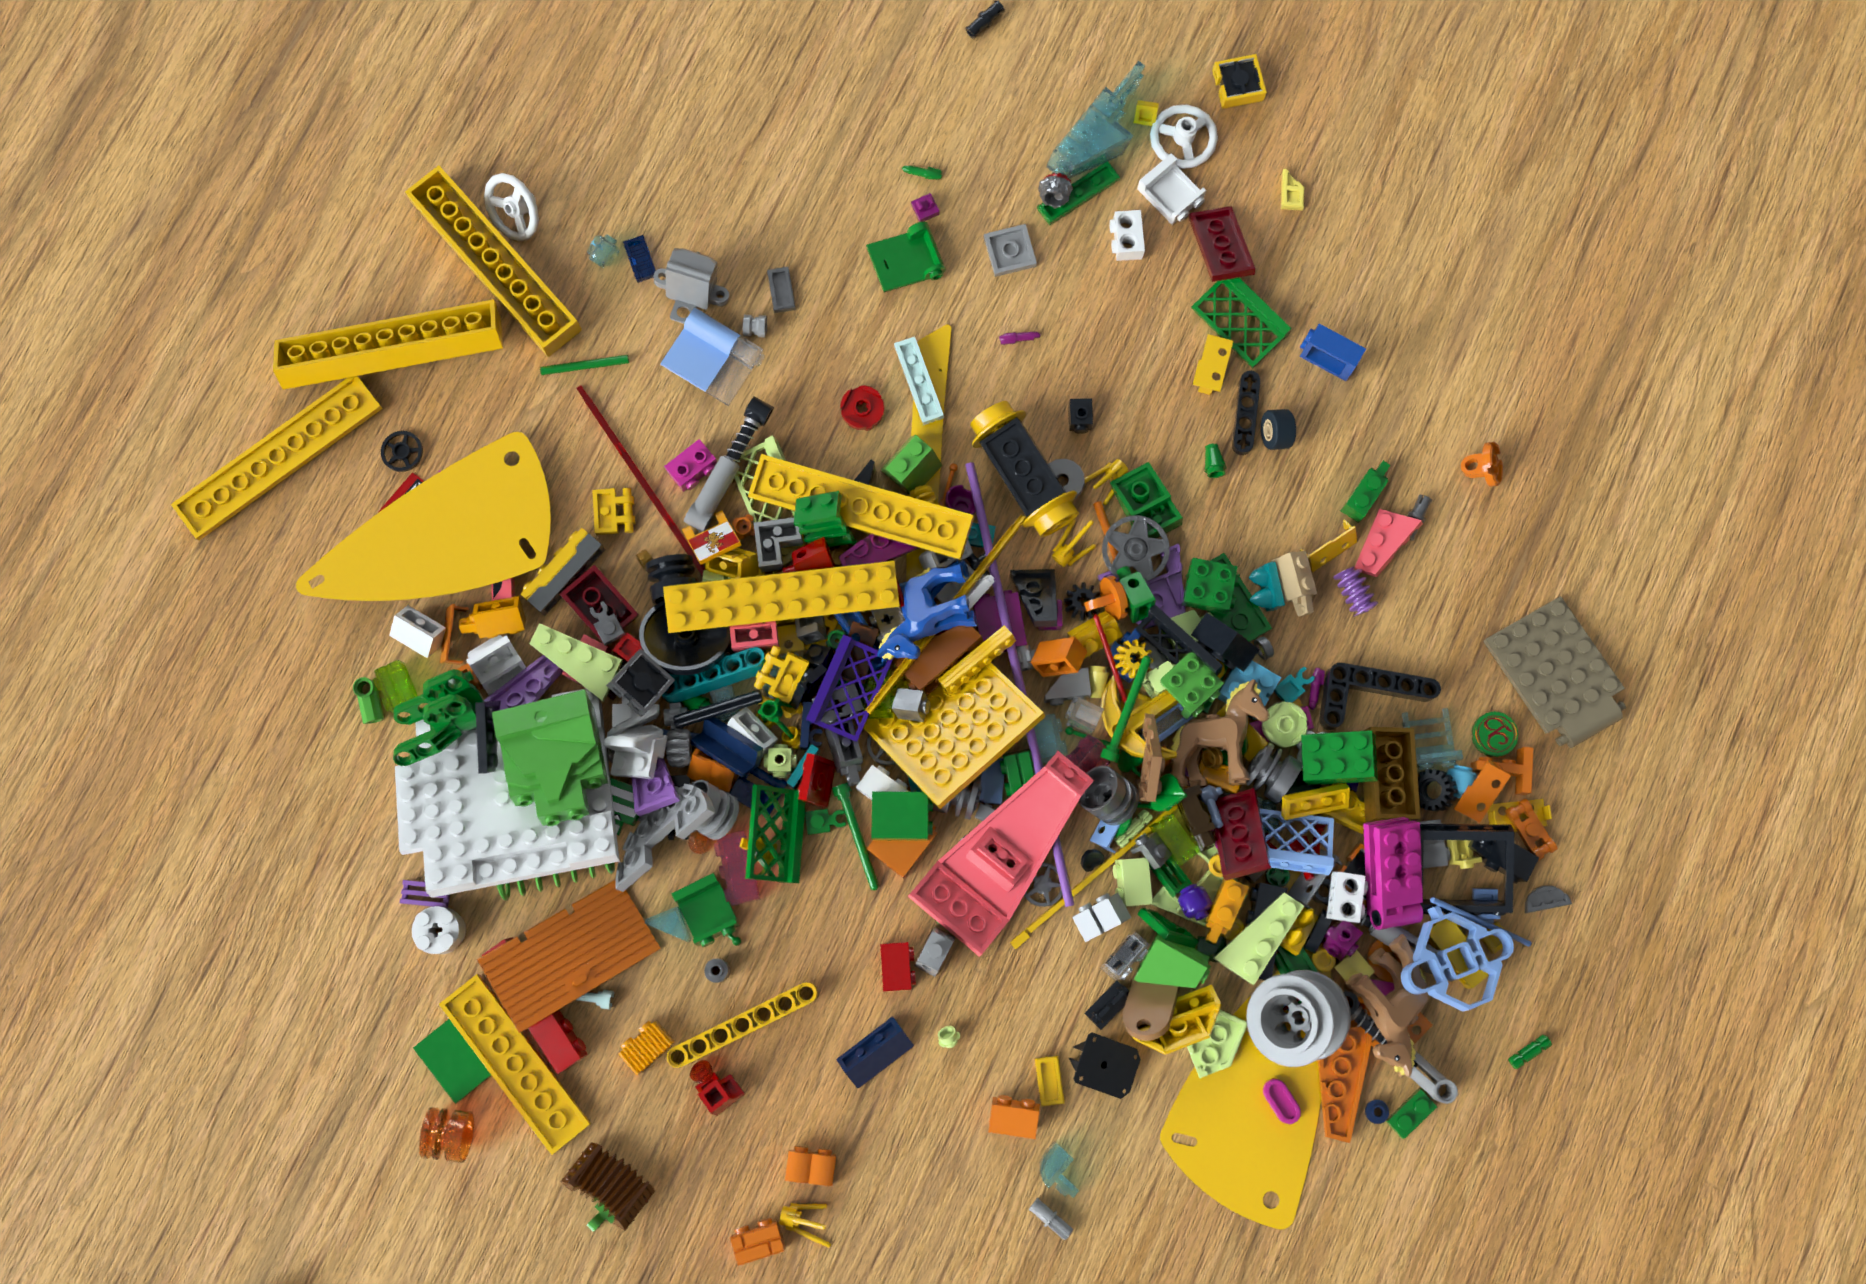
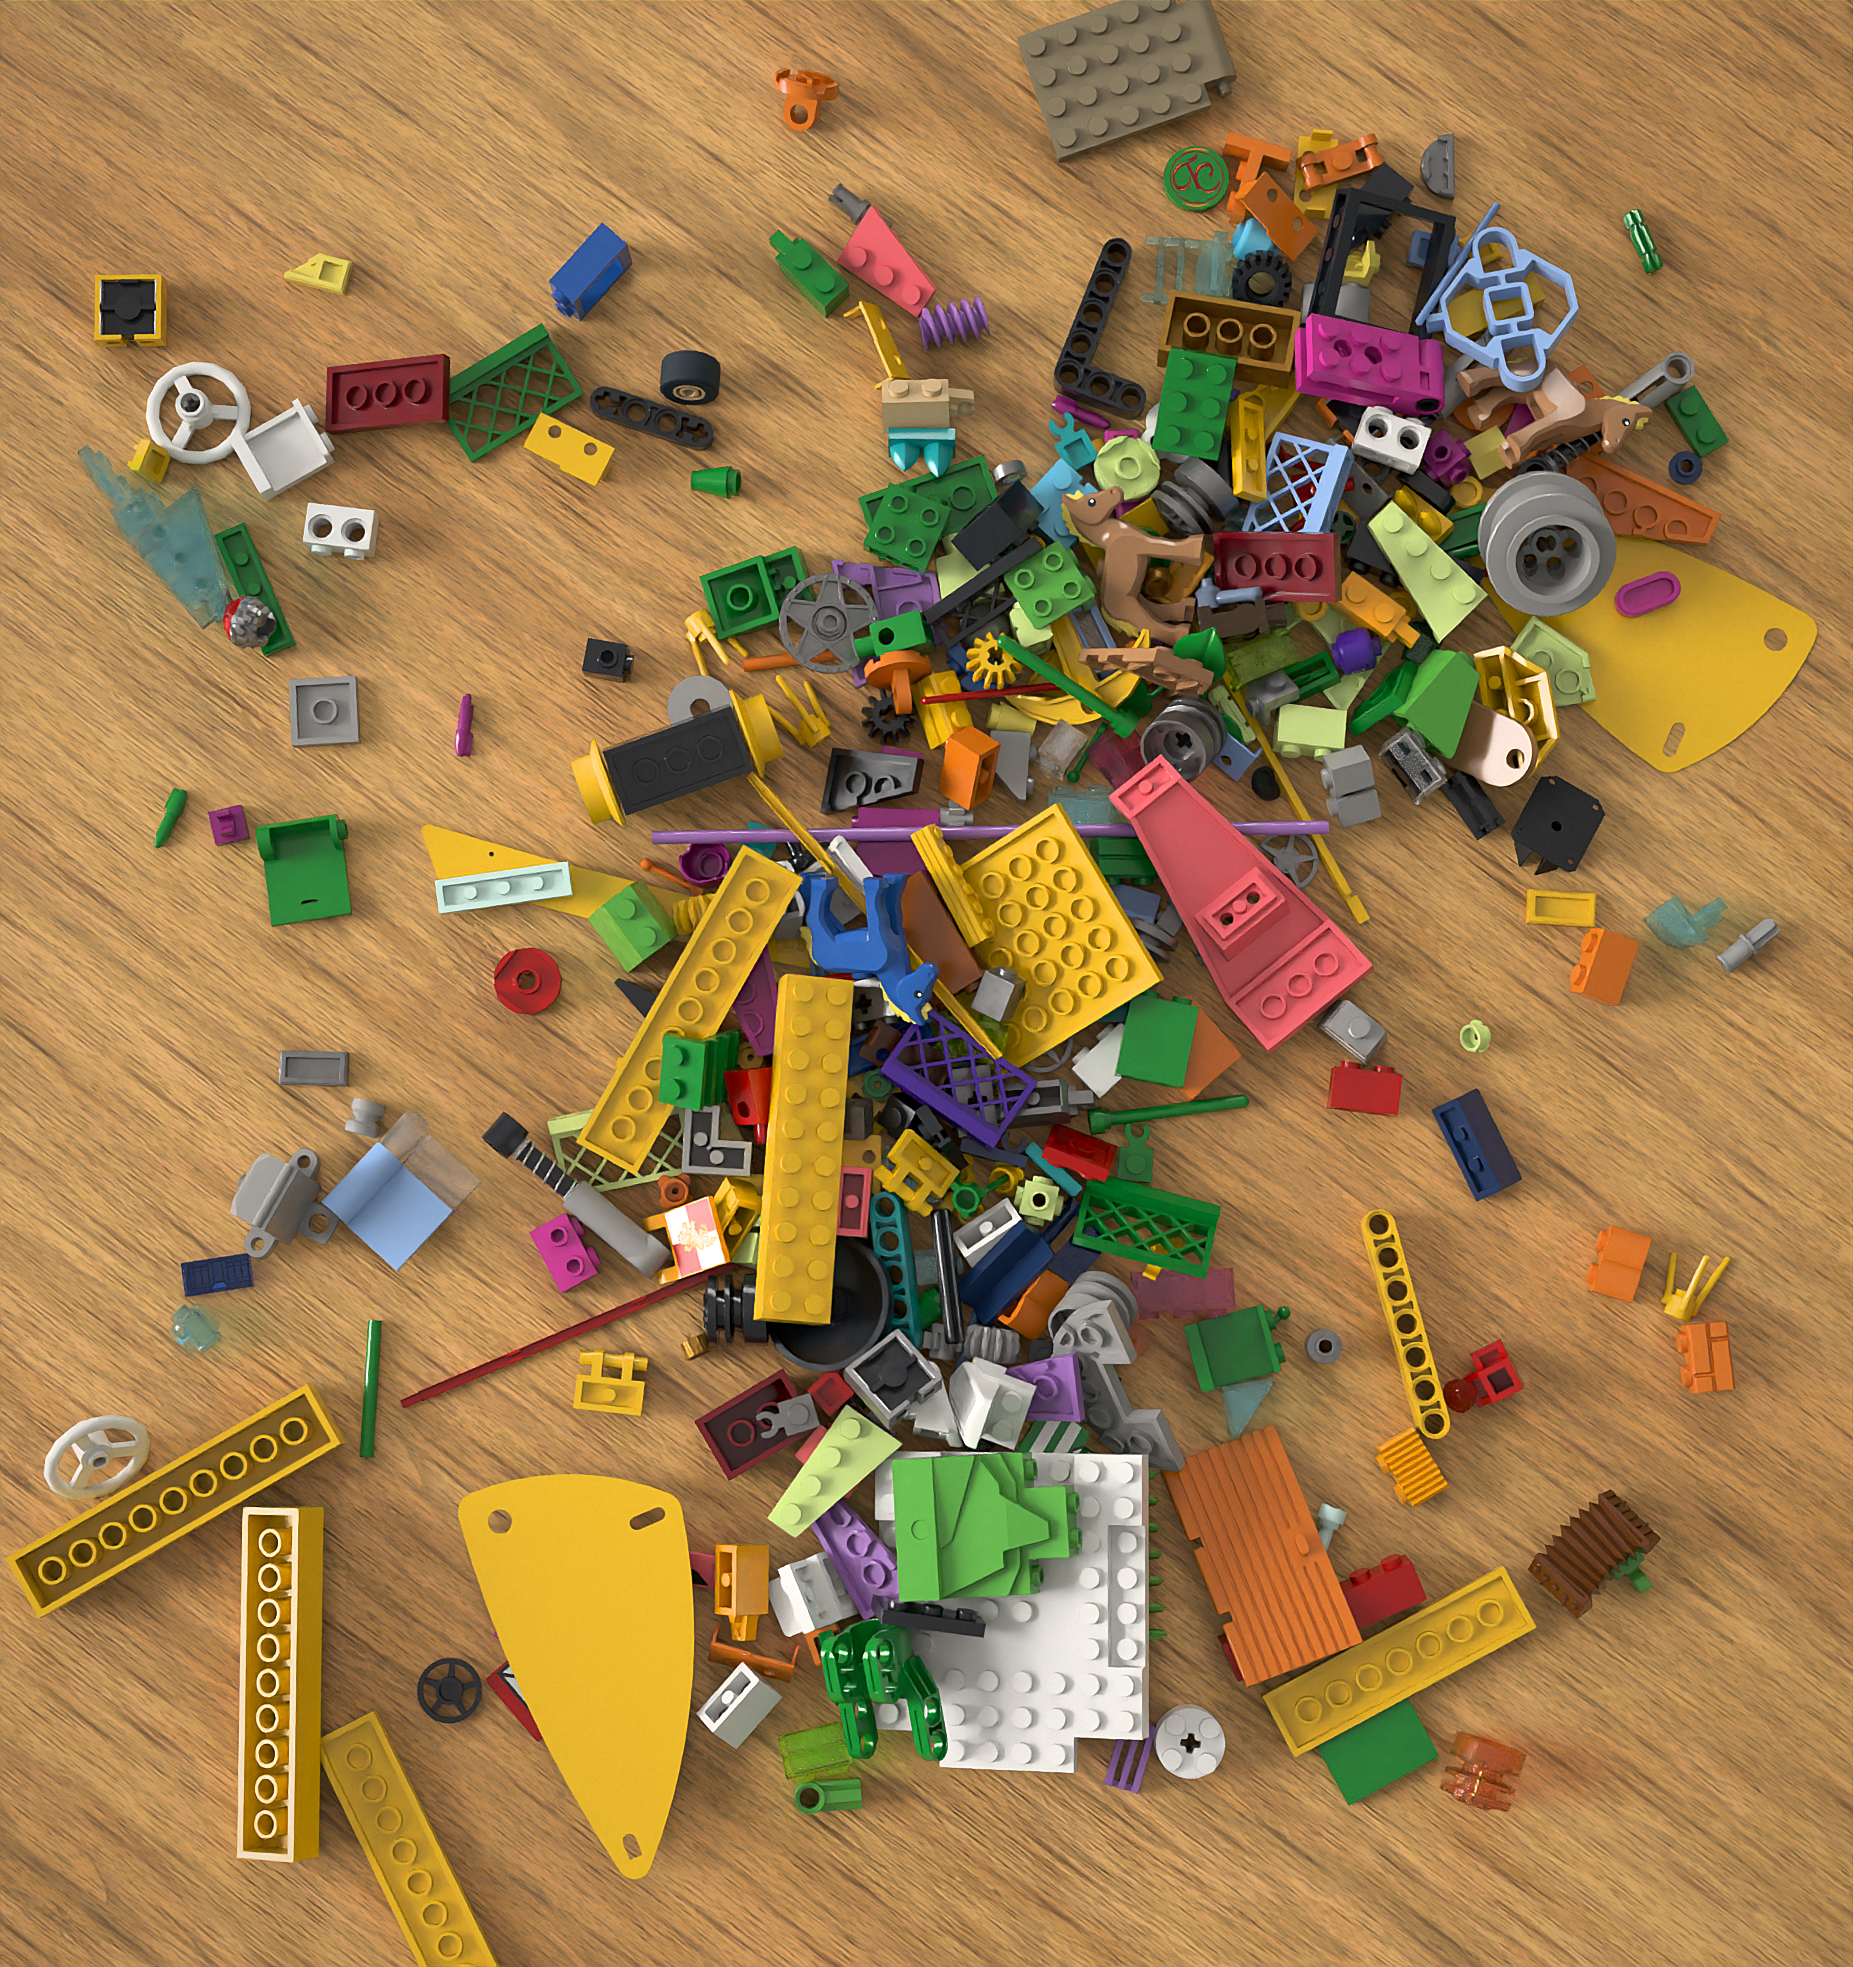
camera: 75 degrees left, 5 degrees up
(562, 571) = (689, 1473): dark grey piece -> none

